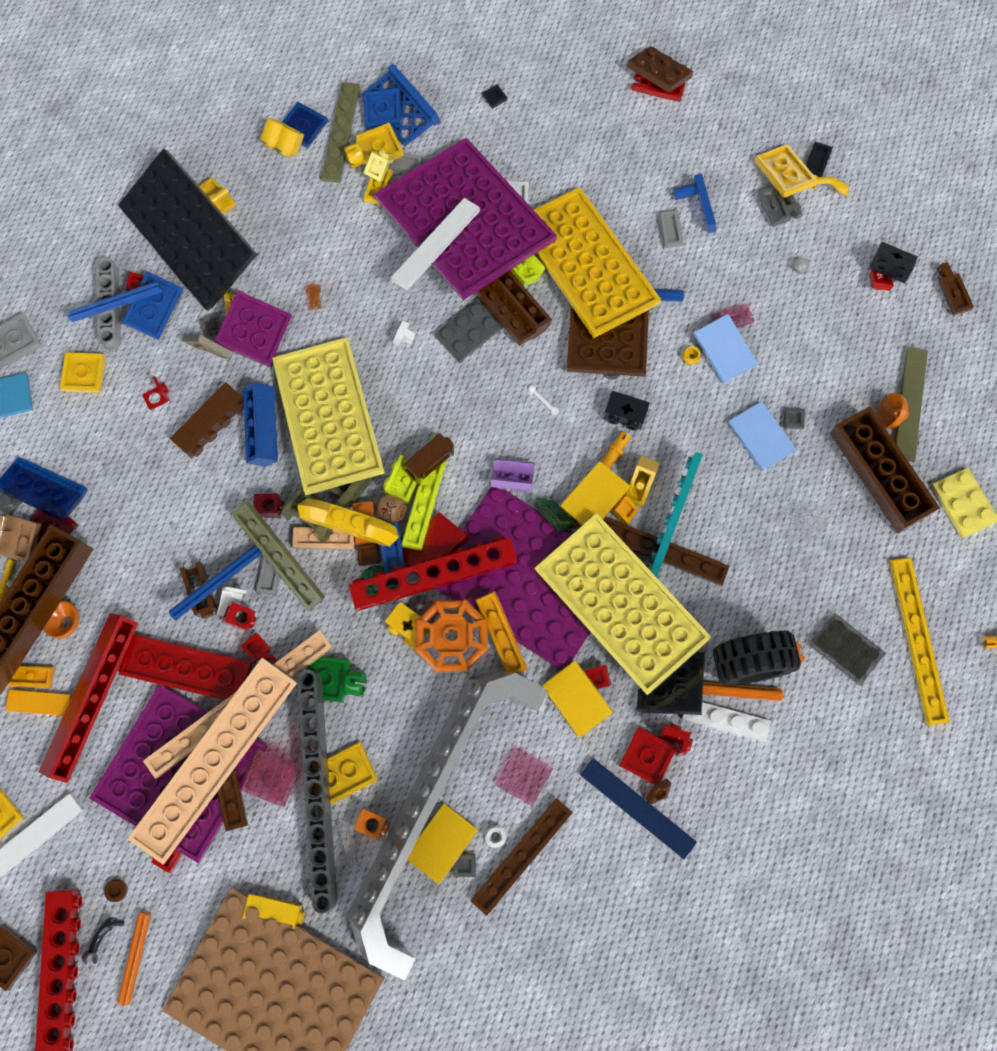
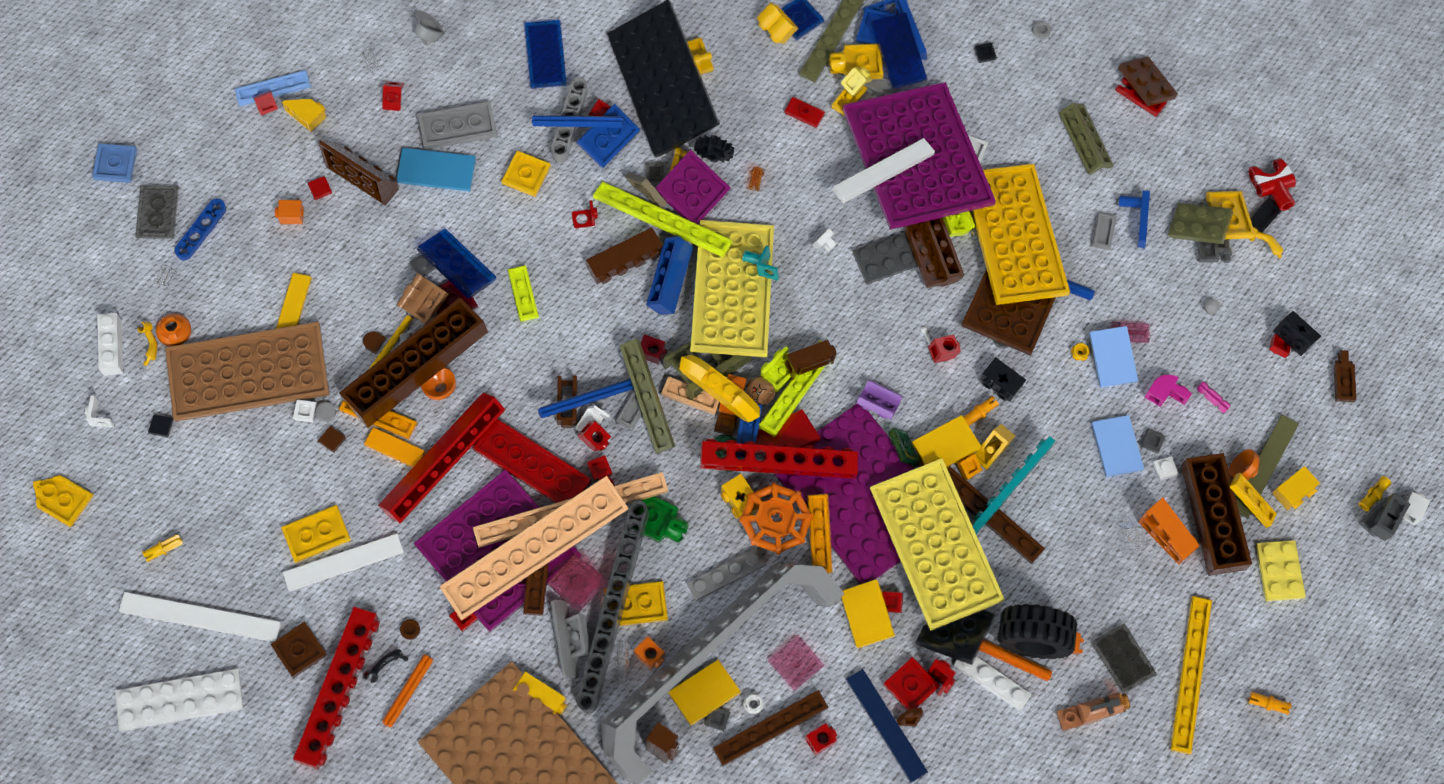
camera: 10 degrees right, 5 degrees down
(64, 246) = (545, 54): none -> clear blue tile
(119, 494) = (523, 293): none -> neon yellow tile
(234, 370) = (662, 219): none -> neon yellow tile
(261, 281) = (714, 148): none -> black gear
(284, 838) = (571, 638): none -> light grey bracket
(339, 215) = (804, 112): none -> red plate
(346, 378) = (761, 261): none -> teal bracket
(410, 122) = (899, 50): none -> clear blue tile
(416, 921) = (662, 743): none -> reddish brown brick
(421, 710) = (726, 574): none -> light grey plate
(540, 56) = (1041, 30): none -> light grey tile
(556, 406) = (939, 353): none -> red brick
(570, 855) = (815, 745): none -> red brick
(620, 145) = (1085, 138): none -> olive fence
(761, 188) = (1200, 223): none -> olive plate
(787, 360) = (1166, 386): none -> dark pink brick
(816, 441) = (1165, 468): none -> white plate
(817, 125) = (1275, 183): none -> red connector
(836, 353) = (1213, 397): none -> dark pink axle
(838, 715) = (1093, 711): none -> nougat plate
(844, 504) = (1169, 531): none -> orange wedge
(914, 442) = (1253, 500): none -> yellow tile
(950, 415) = (1296, 488): none -> yellow brick

